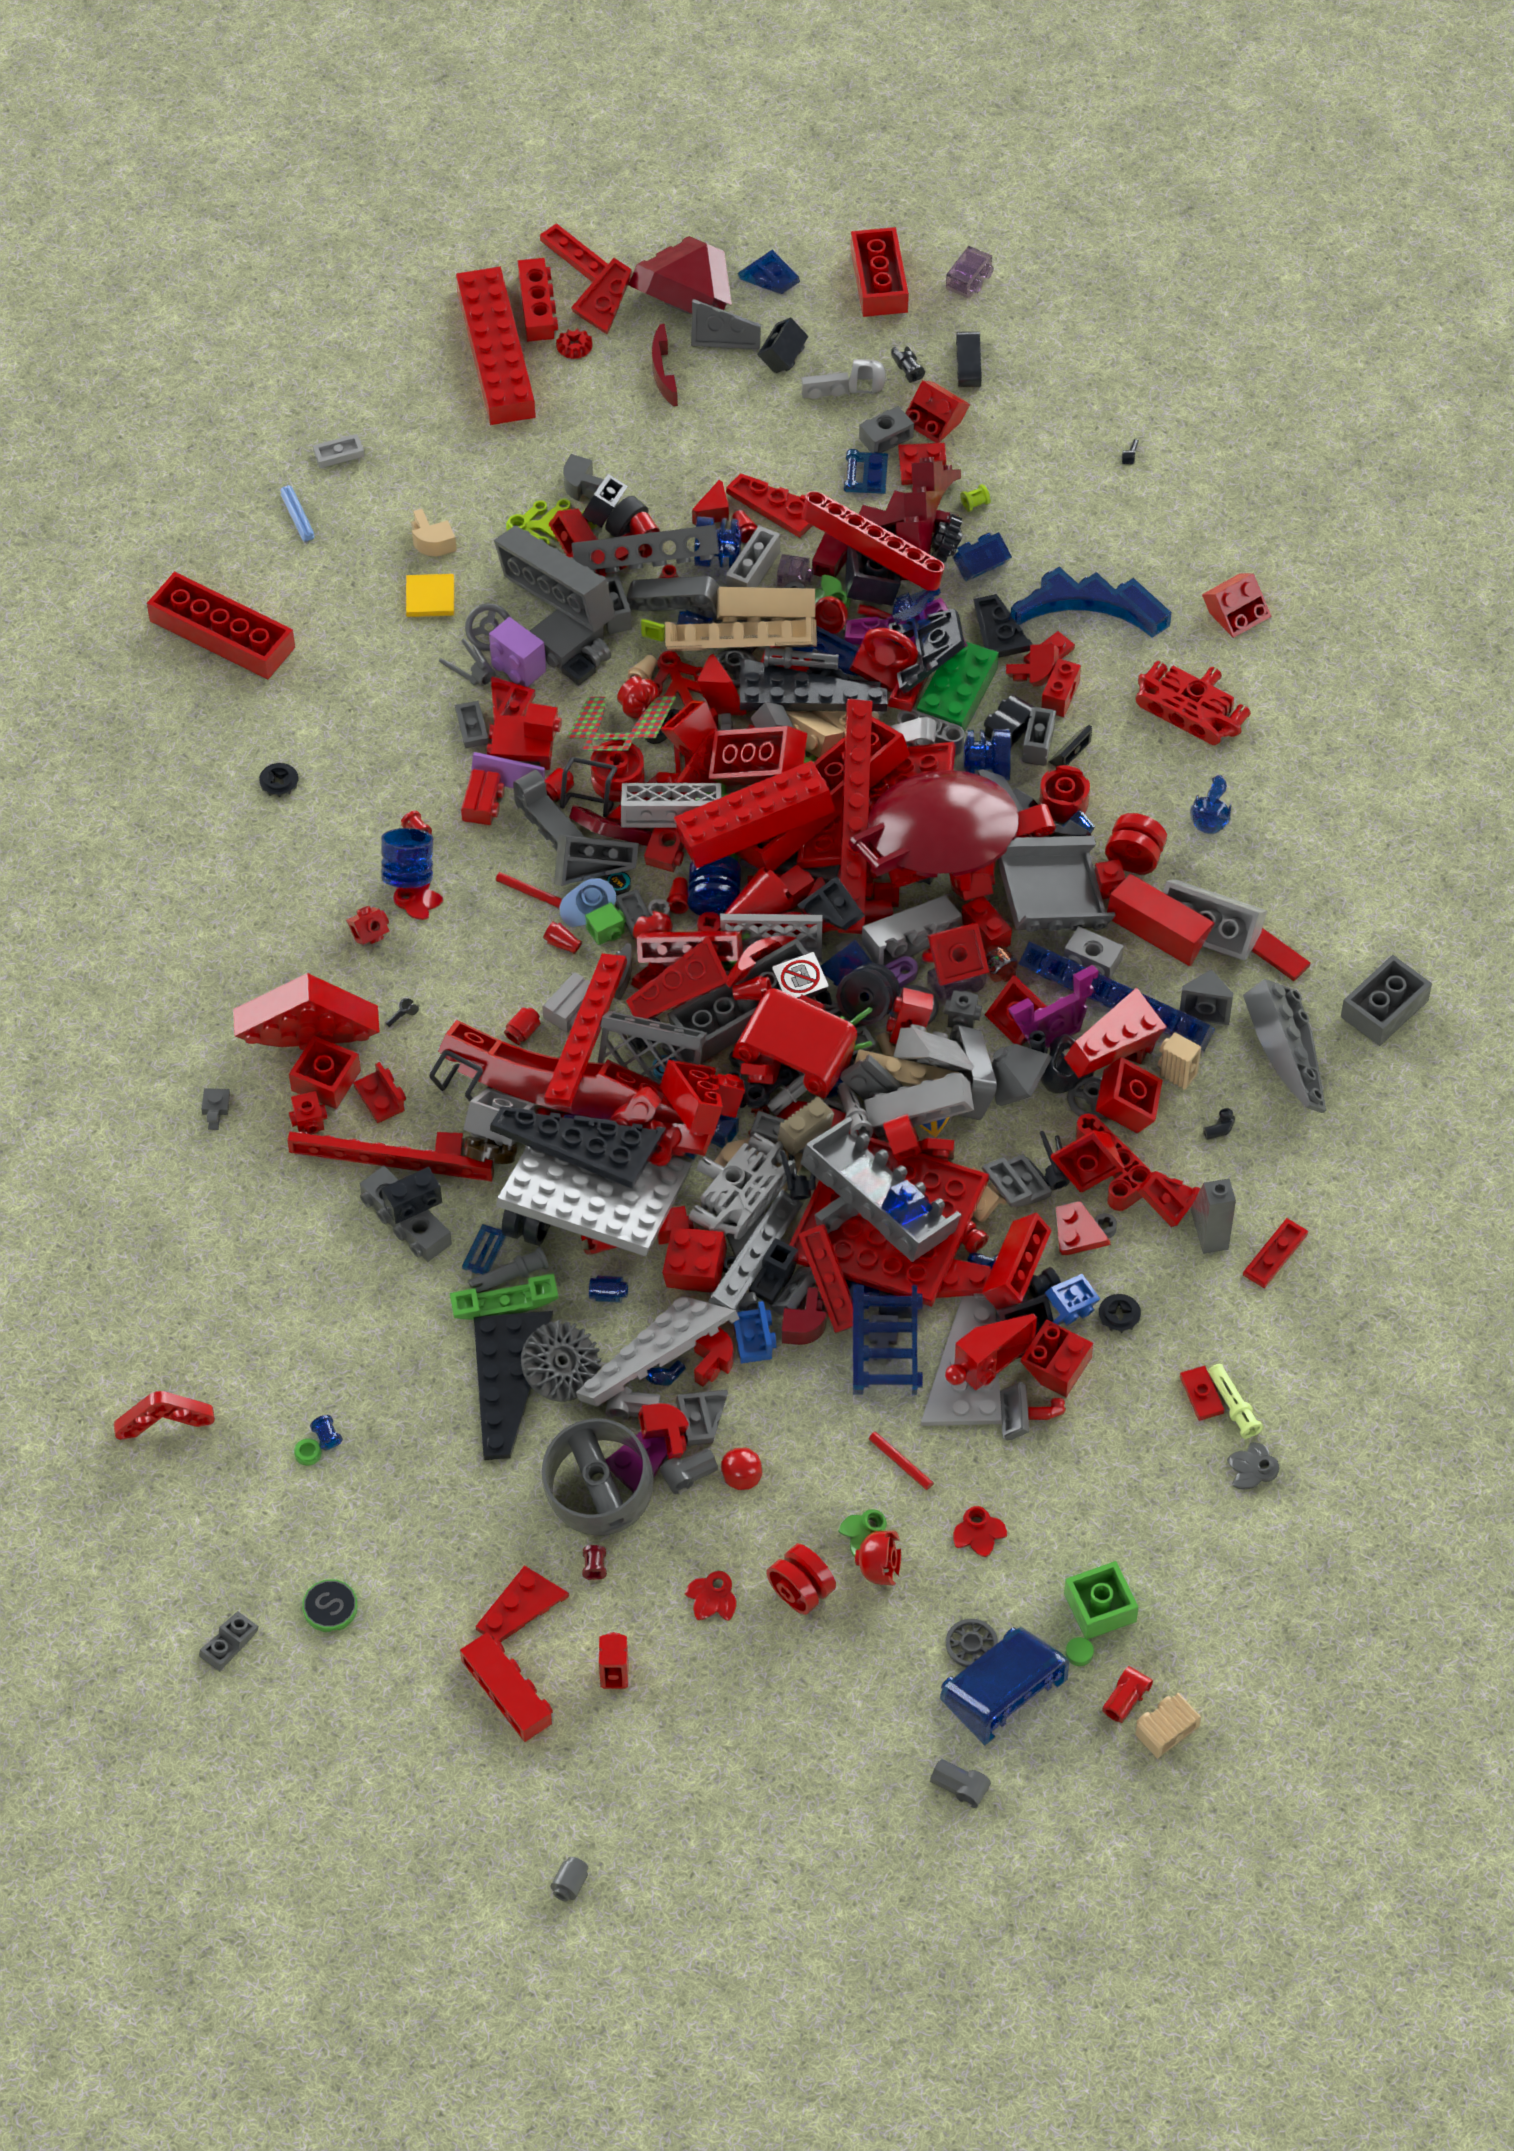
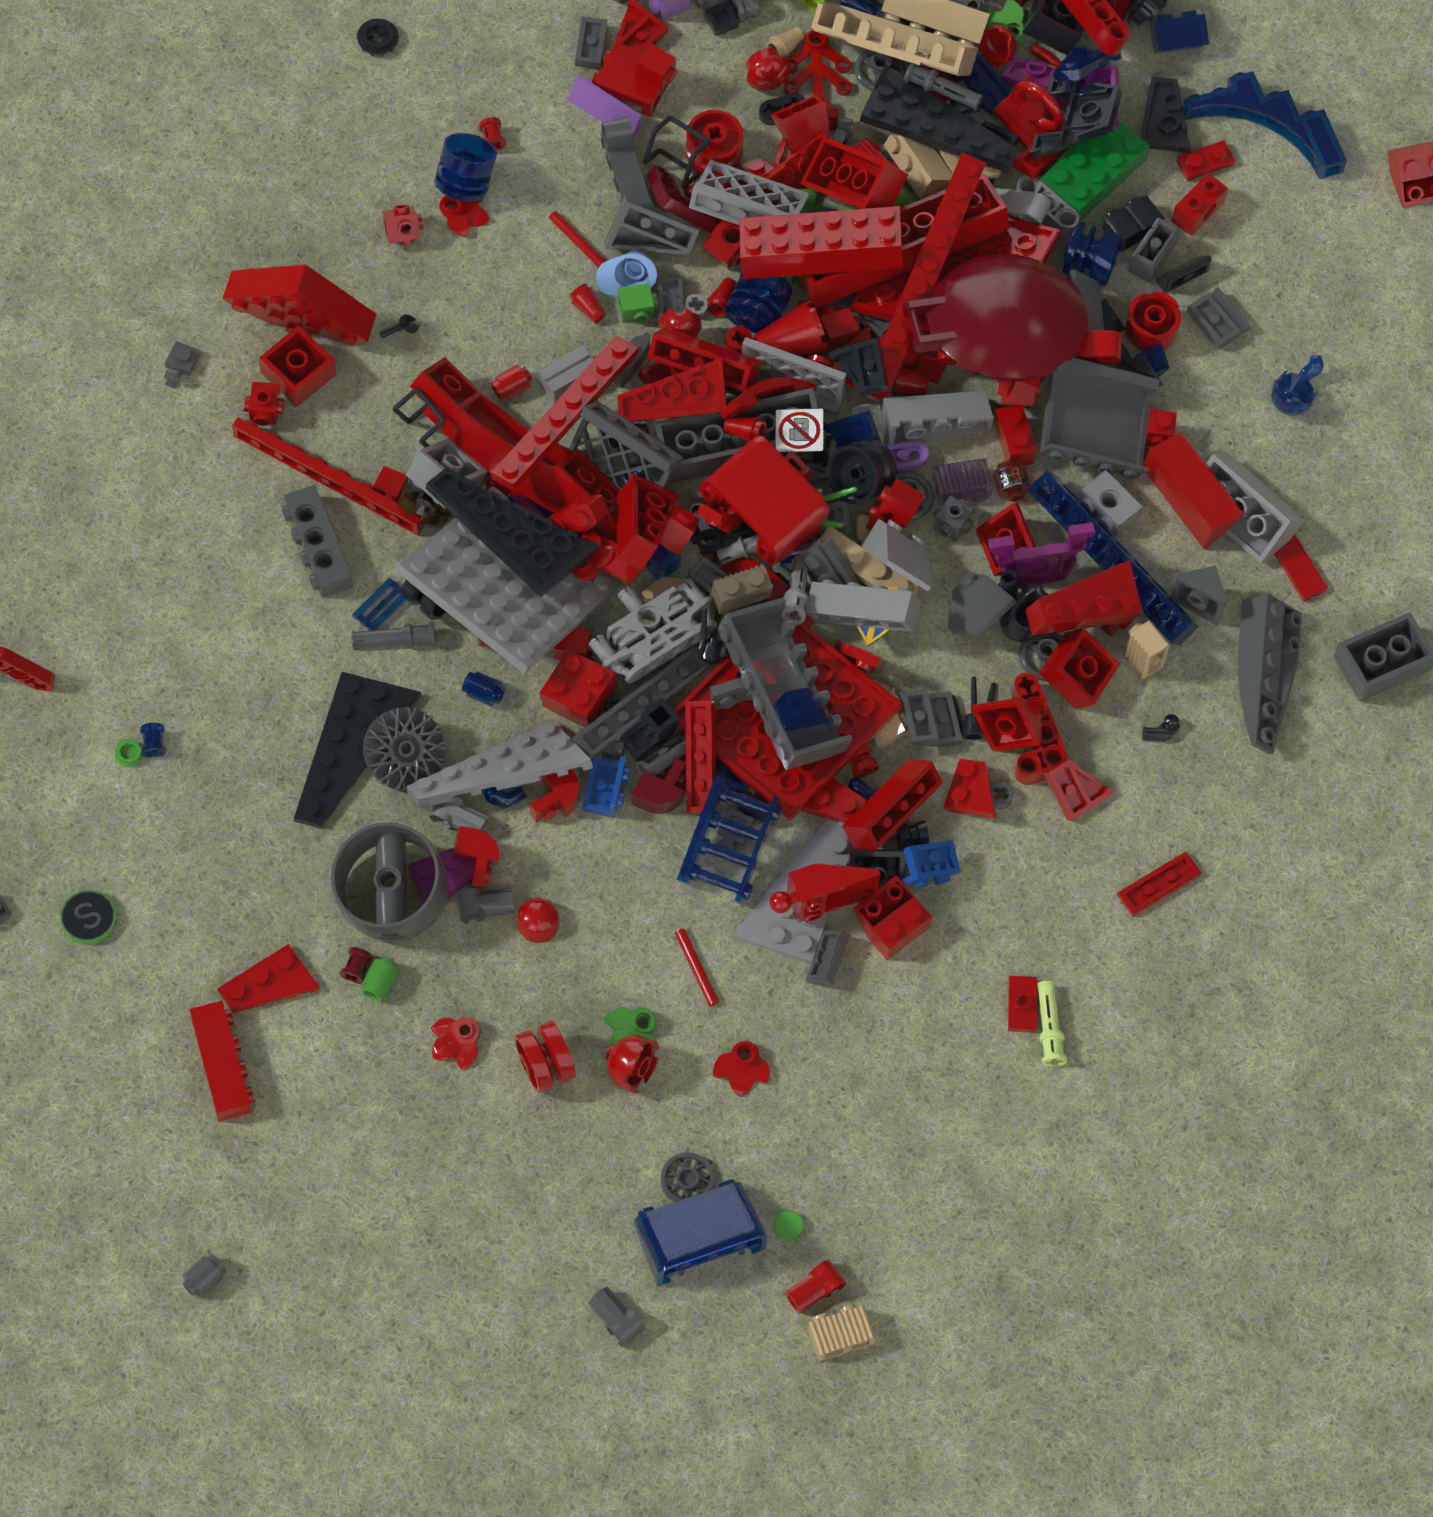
camera: 15 degrees right, 10 degrees up
(381, 1094) = (343, 407): red bracket -> none
(412, 1195) = (326, 527): black brick -> none
(482, 797) = (569, 125): red brick -> none
(509, 1300) = (378, 665): bright green slope -> none
(554, 783) = (642, 135): red brick -> none
(592, 714) = (756, 109): piece -> none
(613, 1661) = (330, 1073): red brick -> none
(620, 881) = (668, 264): black tile -> none
(621, 1566) = (379, 979): none -> bright green brick
(703, 1415) = (521, 851): dark grey wing -> none
(719, 688) = (849, 87): red slope -> none
(771, 716) = (886, 144): dark grey brick -> none
(902, 1137) = (831, 634): red brick -> none
(957, 954) = (967, 460): red tile -> none
(982, 1077) = (937, 601): dark grey beam -> none
(1042, 662) = (1188, 173): red brick -> none
(1045, 1413) = (857, 969): red arm -> none
(1101, 1600) = (828, 1183): bright green brick -> none
(1117, 774) = (1218, 318): none -> dark grey plate
(1127, 1305) = (968, 882): black gear -> none
(1136, 842) = (1202, 401): red wheel -> none
(1191, 702) = (1312, 264): red piece -> none
(1214, 1215) = (1107, 828): dark grey slope -> none
(1250, 1465) = (1037, 1095): dark grey plate -> none

